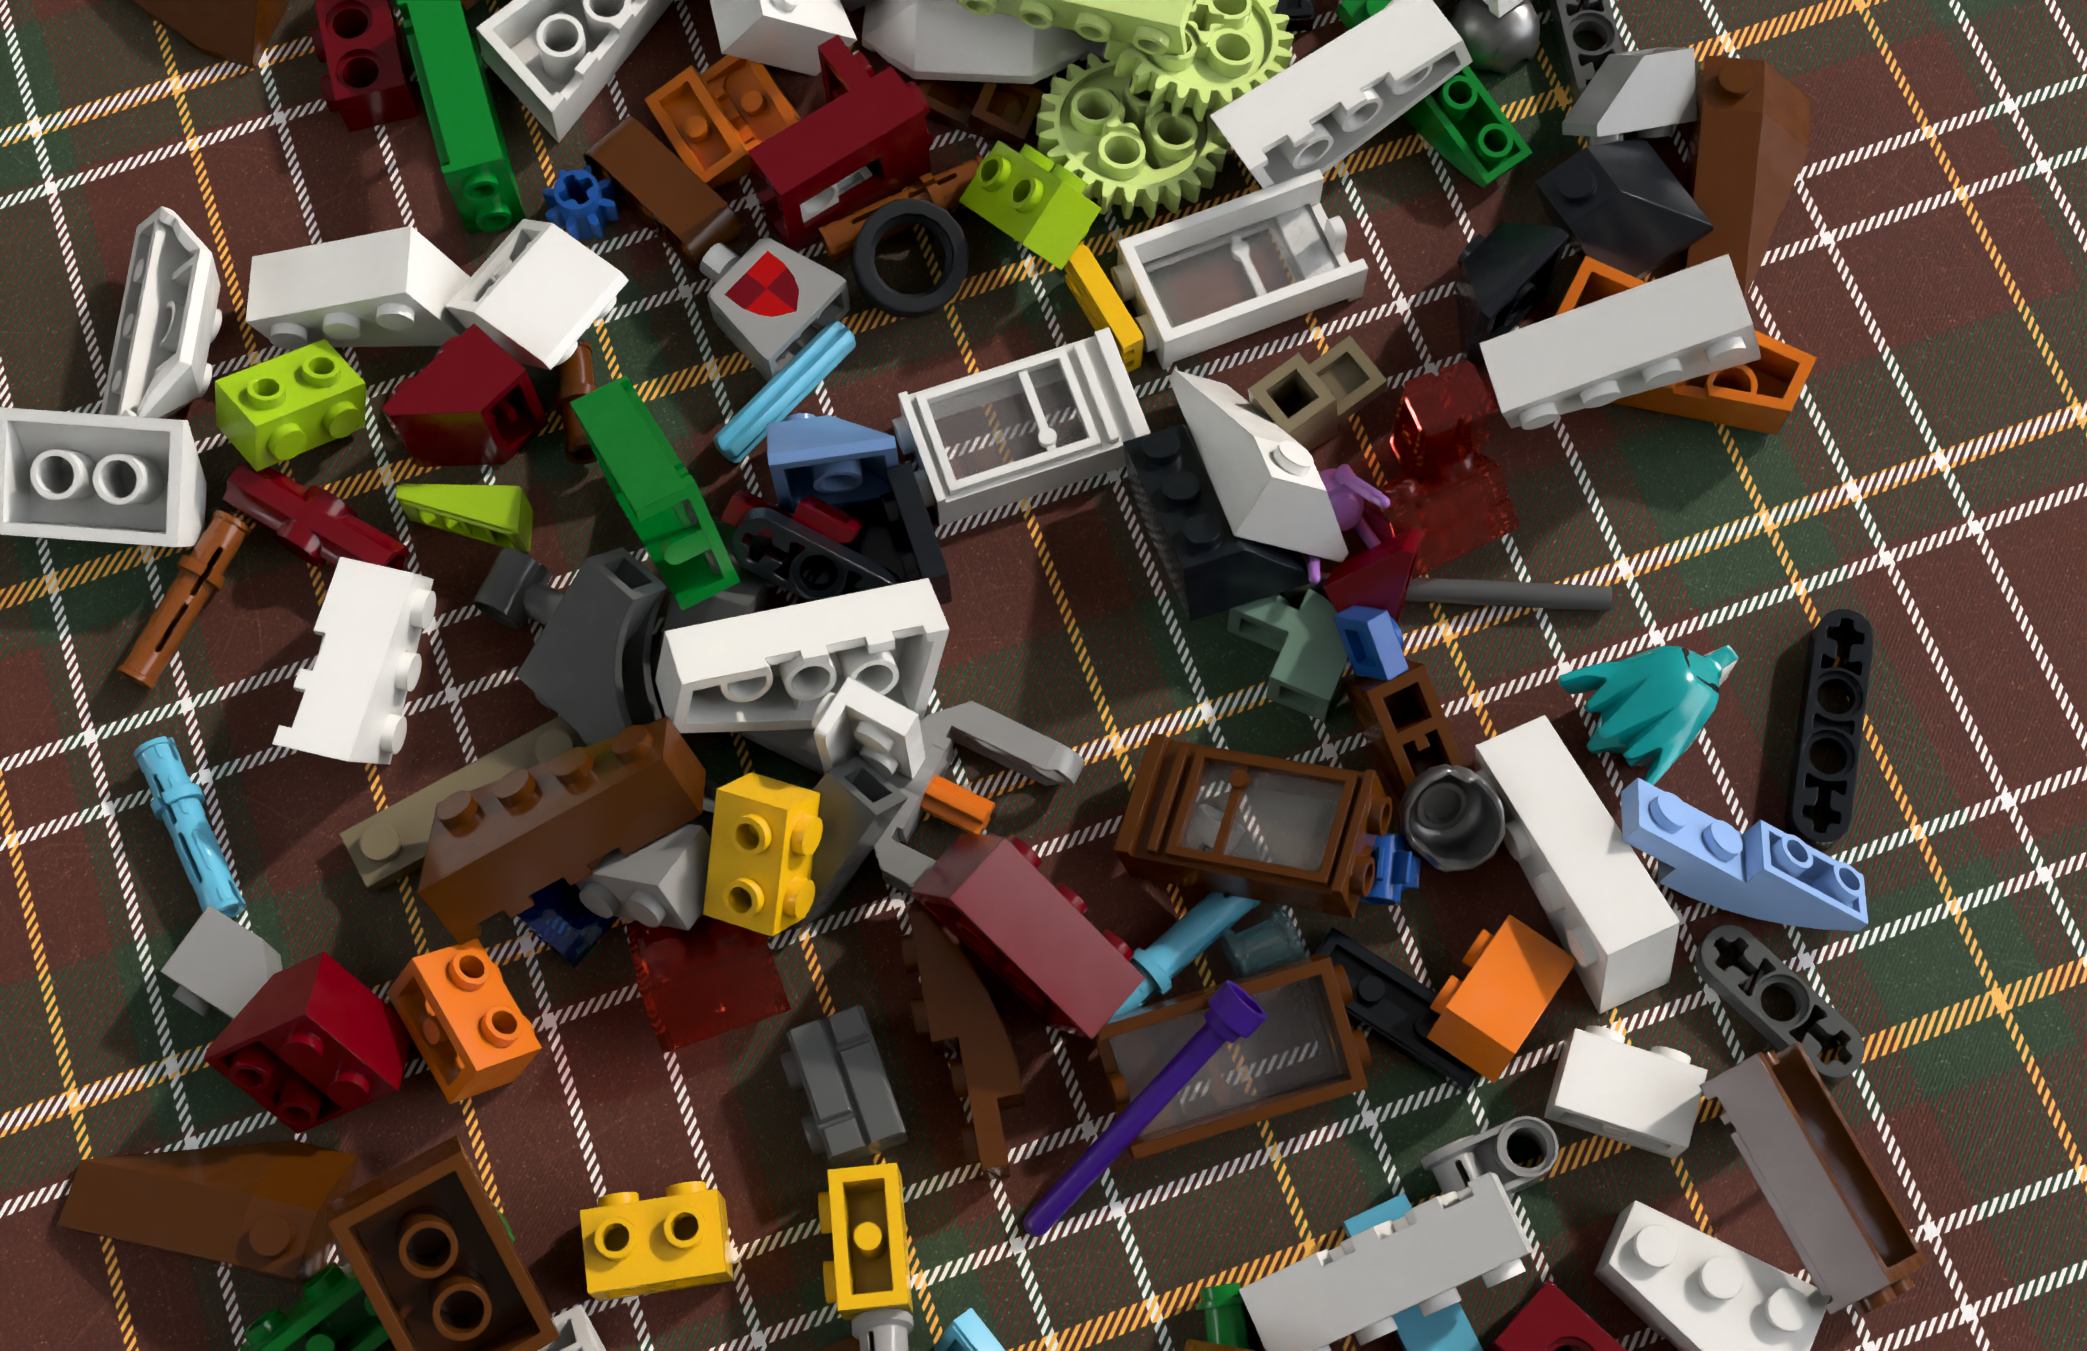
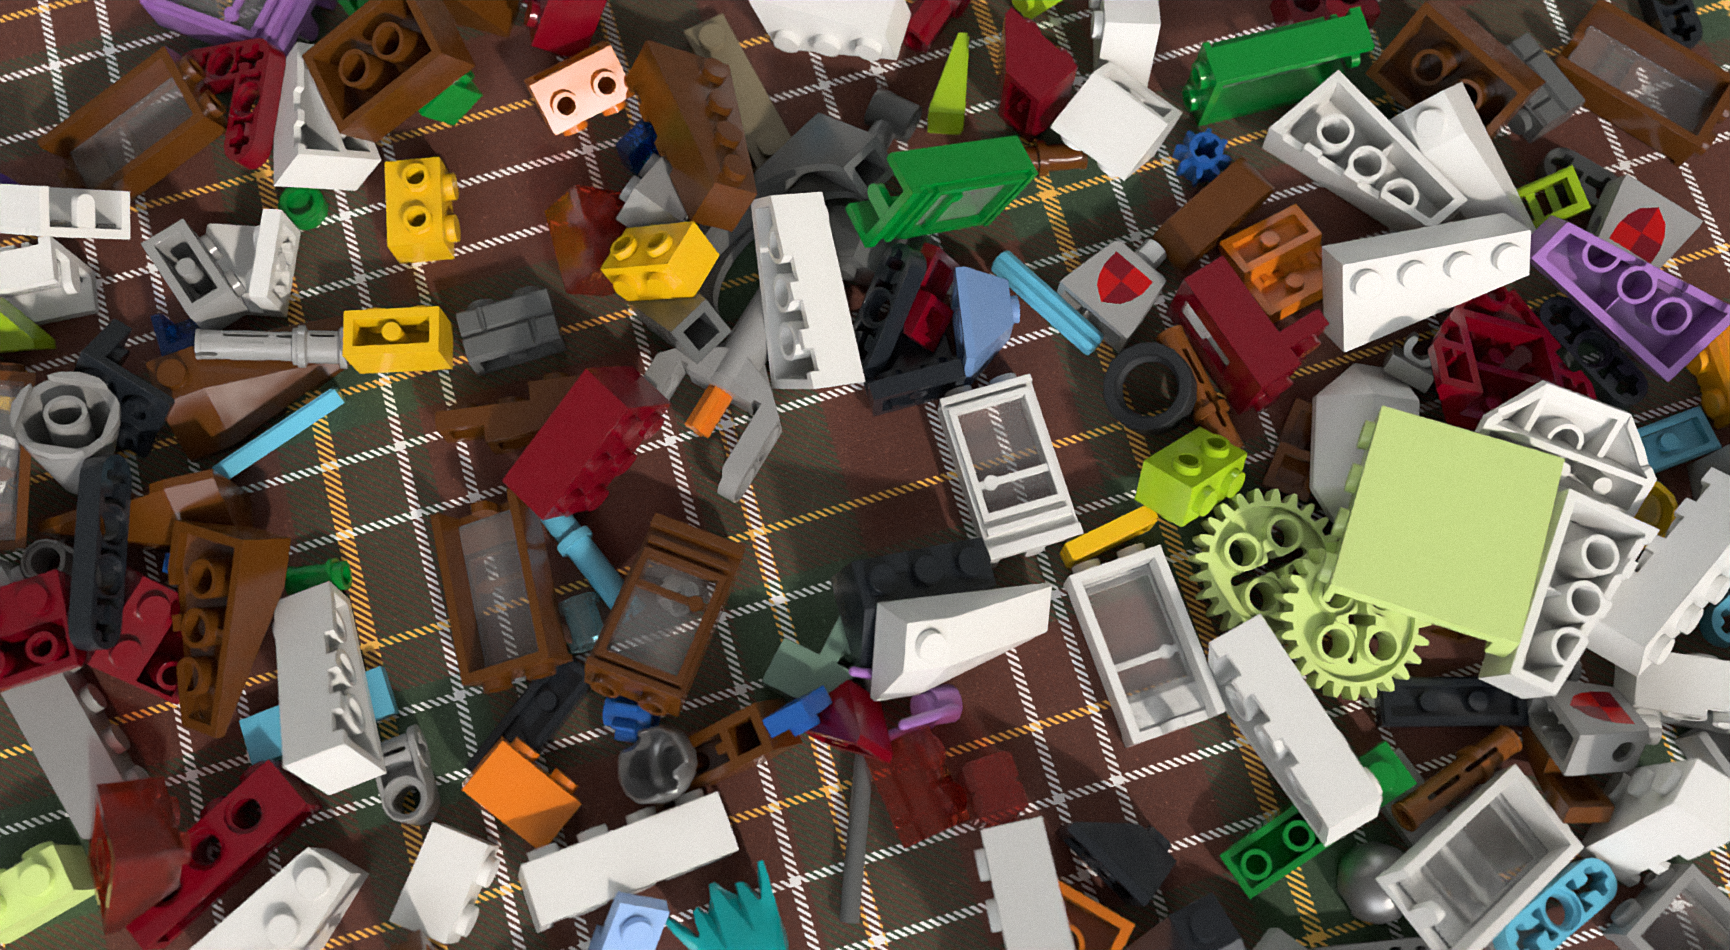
camera: 90 degrees right, 5 degrees up
(873, 725) = (741, 330): white bracket -> none
(1230, 1017) = (508, 579): dark purple piece -> none
(1318, 396) = (1021, 693): dark tan brick -> none

